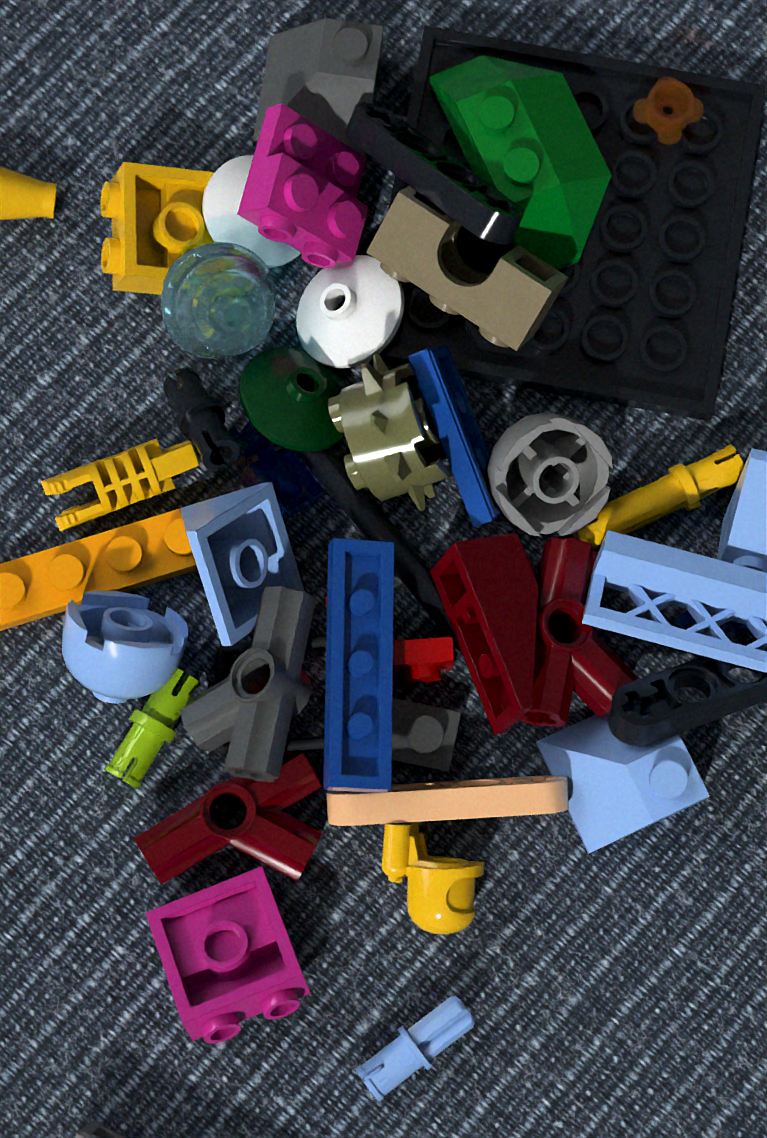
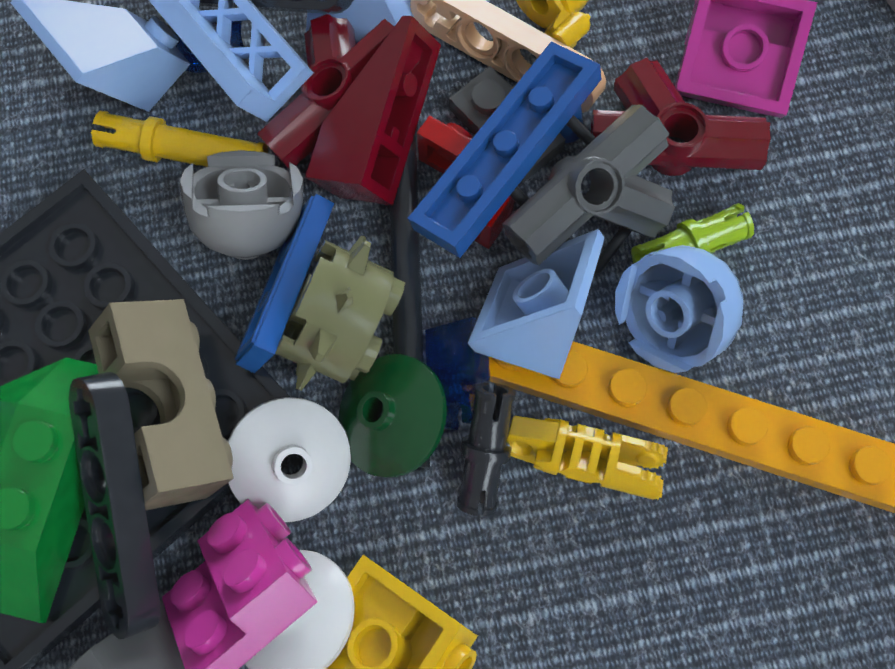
camera: 140 degrees left, 5 degrees down
(218, 300) = (393, 540): clear light blue cone -> none

